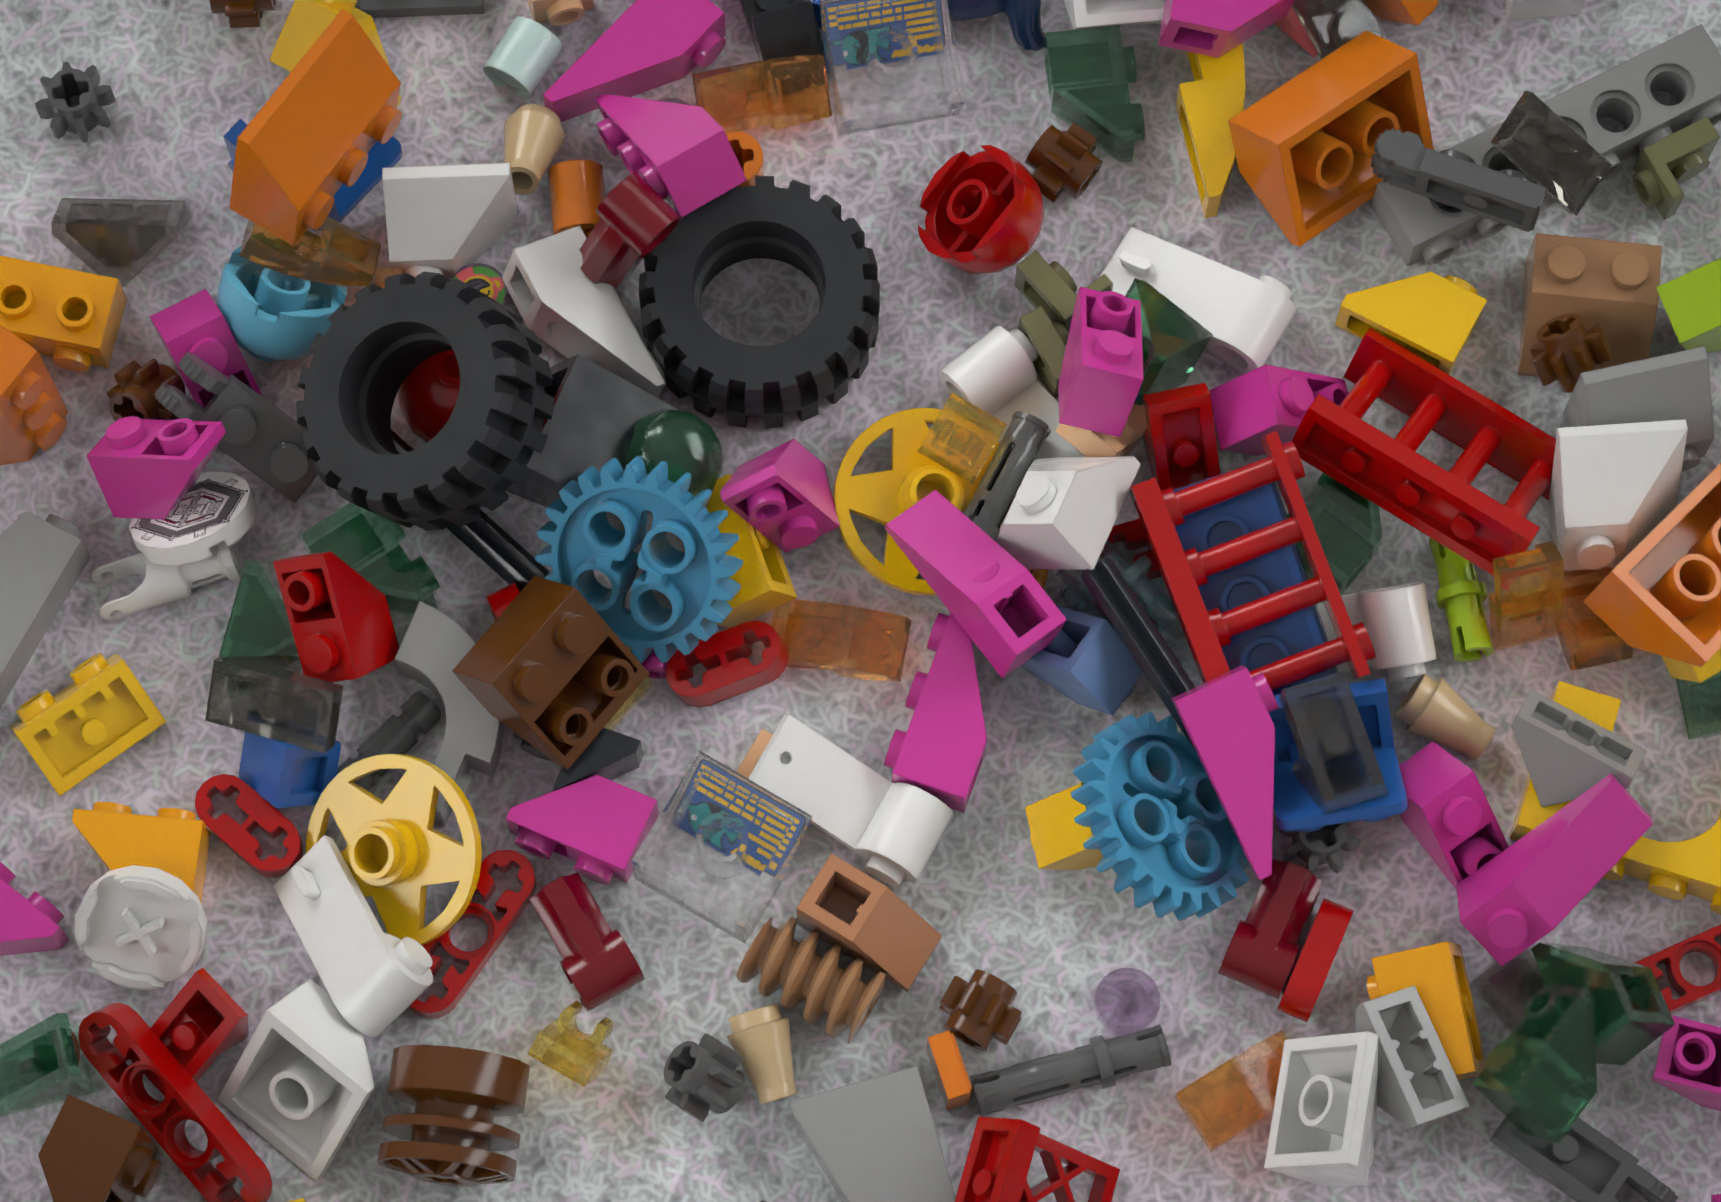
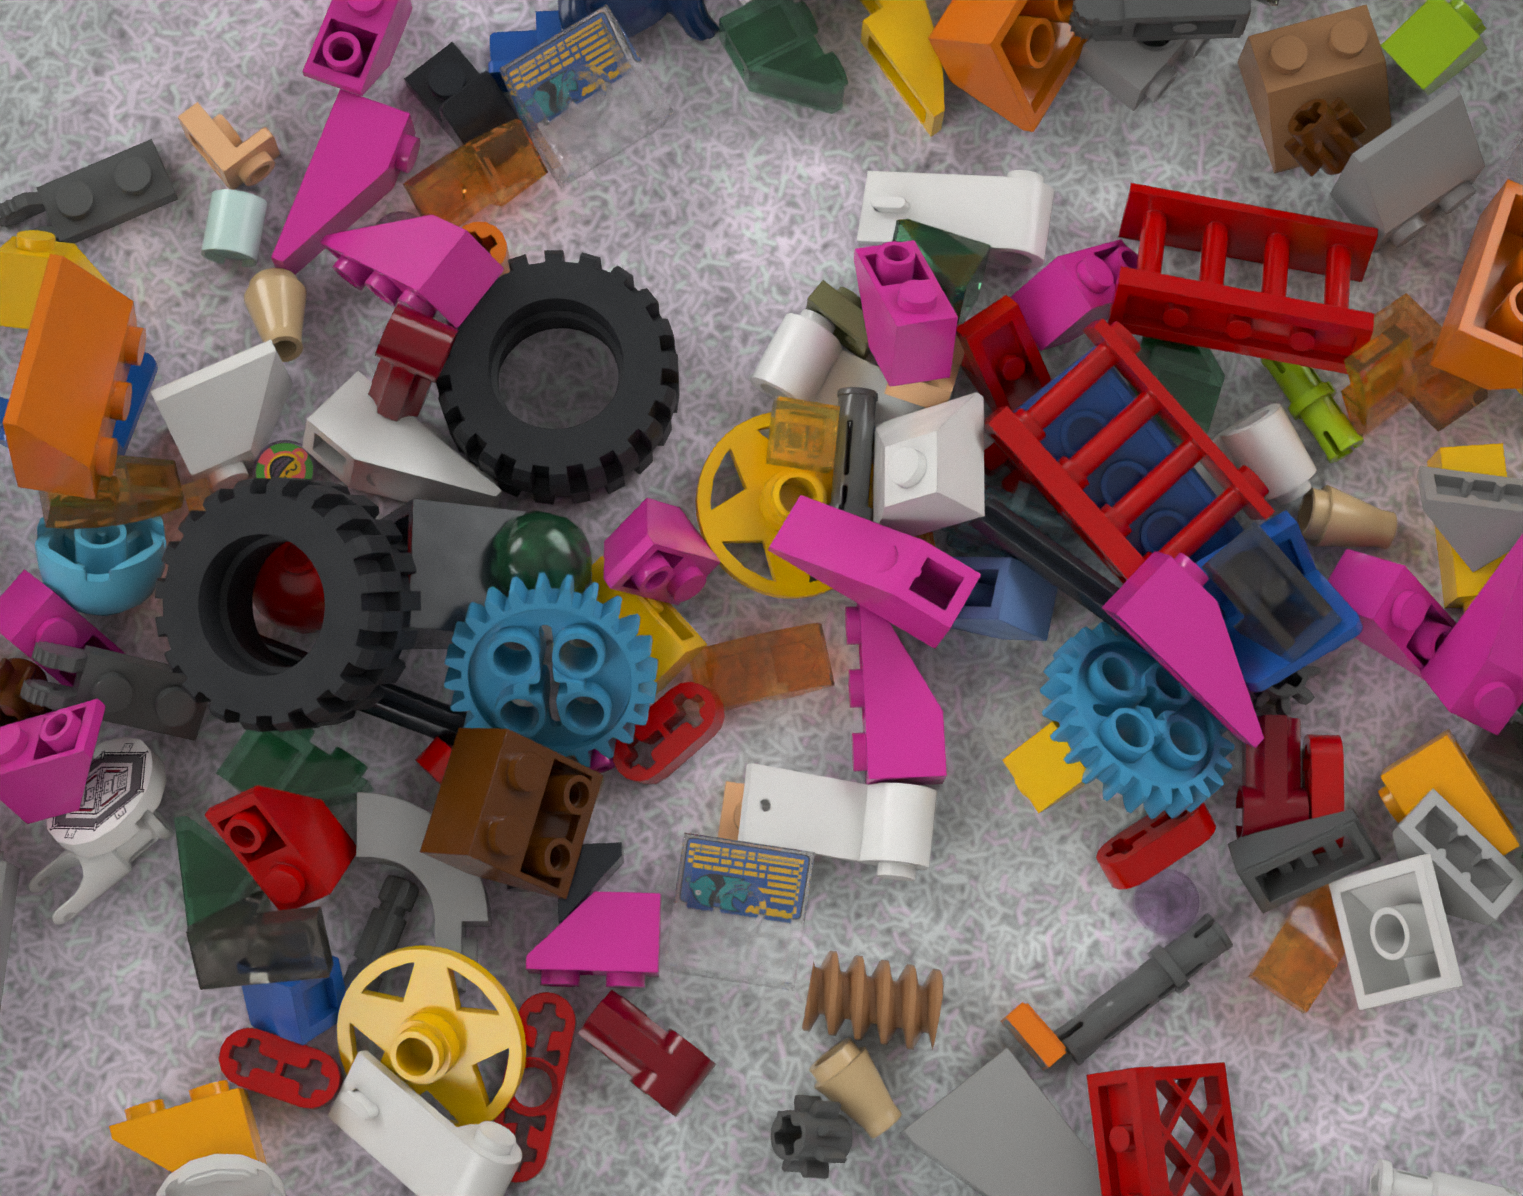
camera: 25 degrees left, 5 degrees up
(86, 721) = (82, 1032): yellow bracket -> none
(572, 1051) = (677, 1161): clear yellow tile -> none
(575, 194) = (342, 343): orange piece -> none
(867, 922) = (903, 928): nougat slope -> none
(980, 1010) = (1039, 967): reddish brown gear -> none
(981, 211) = (729, 211): red cylinder -> none
(1052, 287) = (823, 258): olive bracket -> none
(1064, 161) = (783, 134): reddish brown gear -> none
(1137, 941) = (1153, 846): none -> red beam
(1250, 1024) = (1268, 863): none -> dark grey slope
(1419, 313) = (1172, 152): yellow slope -> none
(1612, 488) = (1412, 250): white slope -> none

